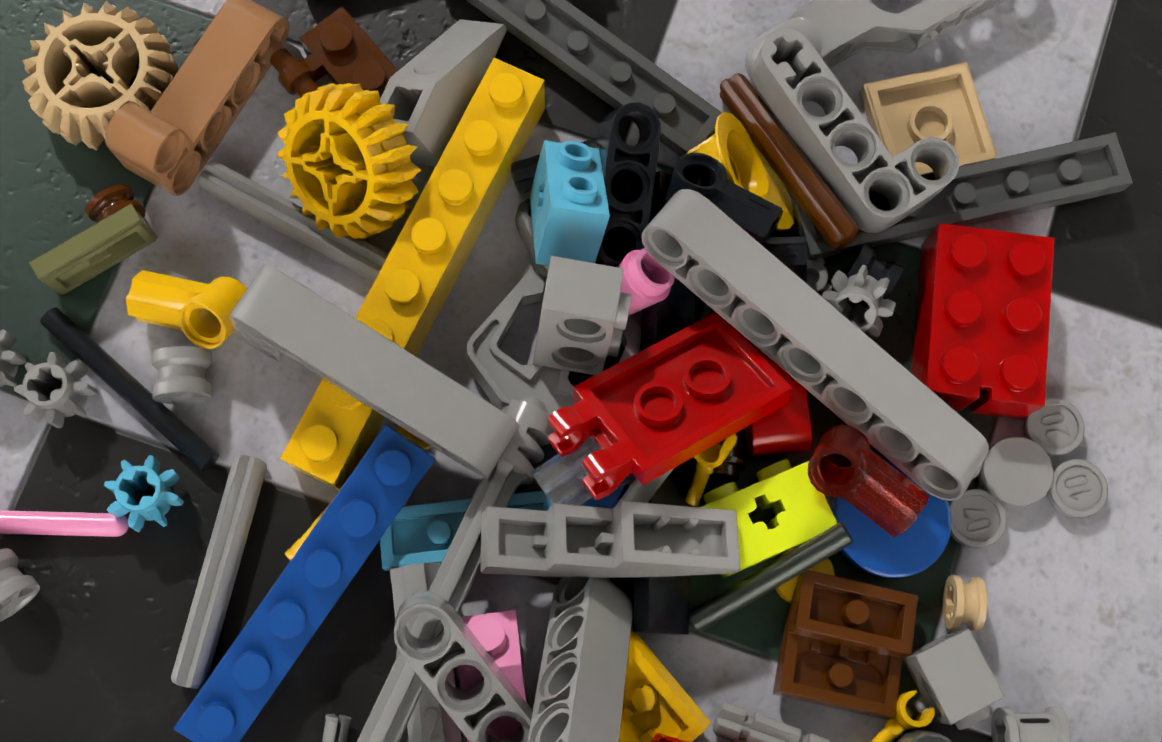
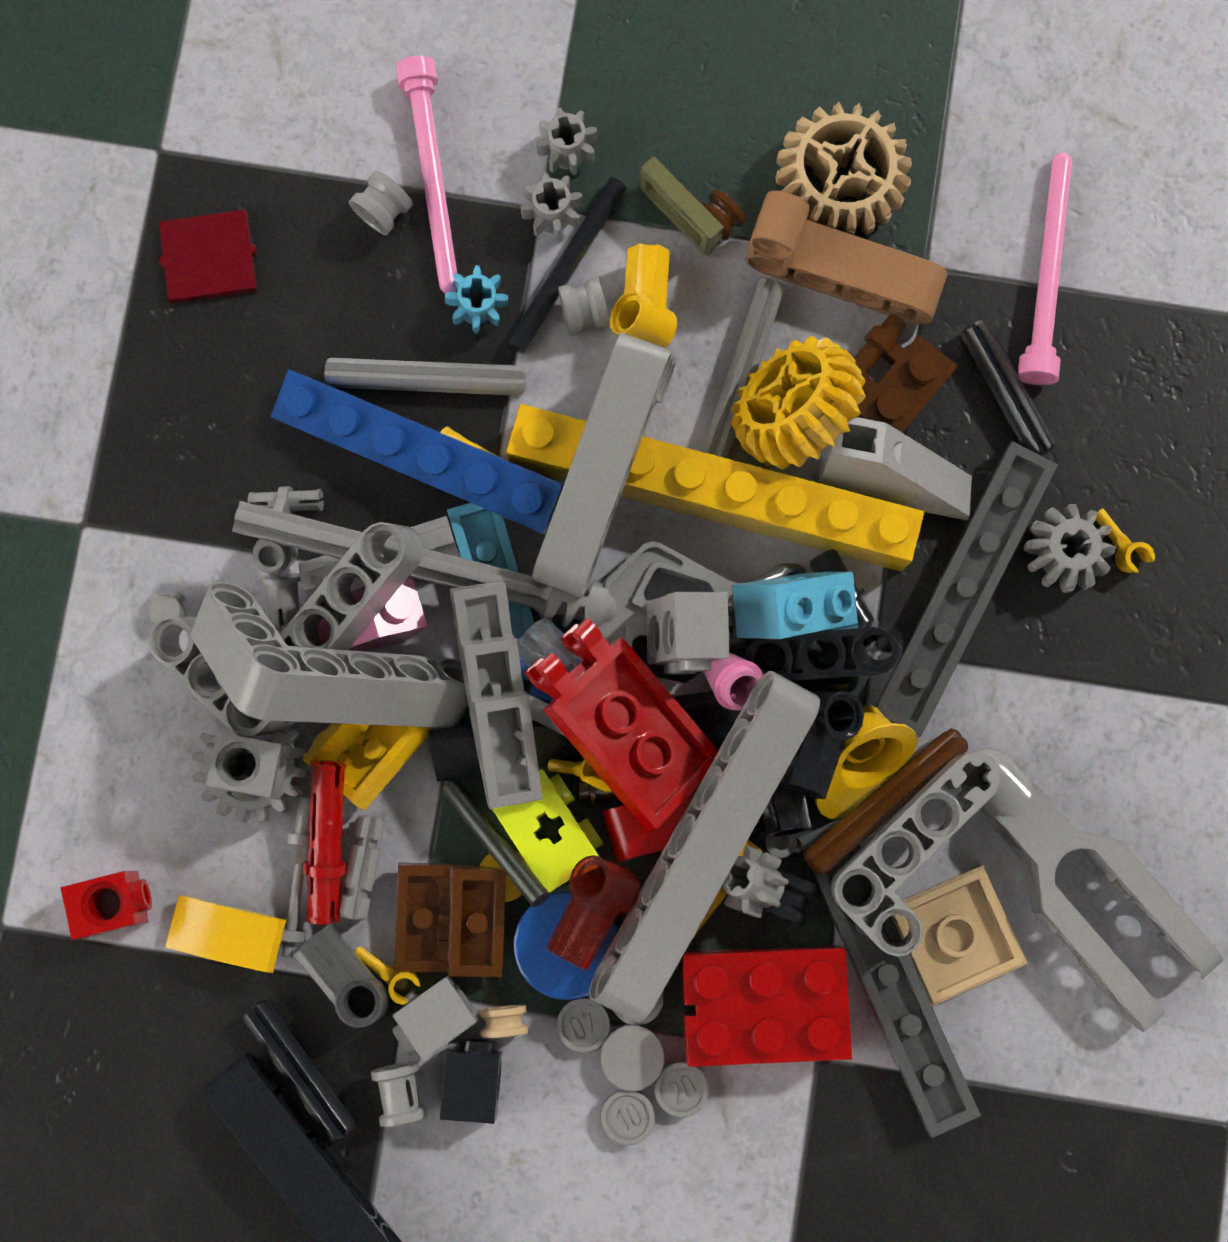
camera: 80 degrees right, 5 degrees up
(1030, 649) = (471, 1082): none -> black brick

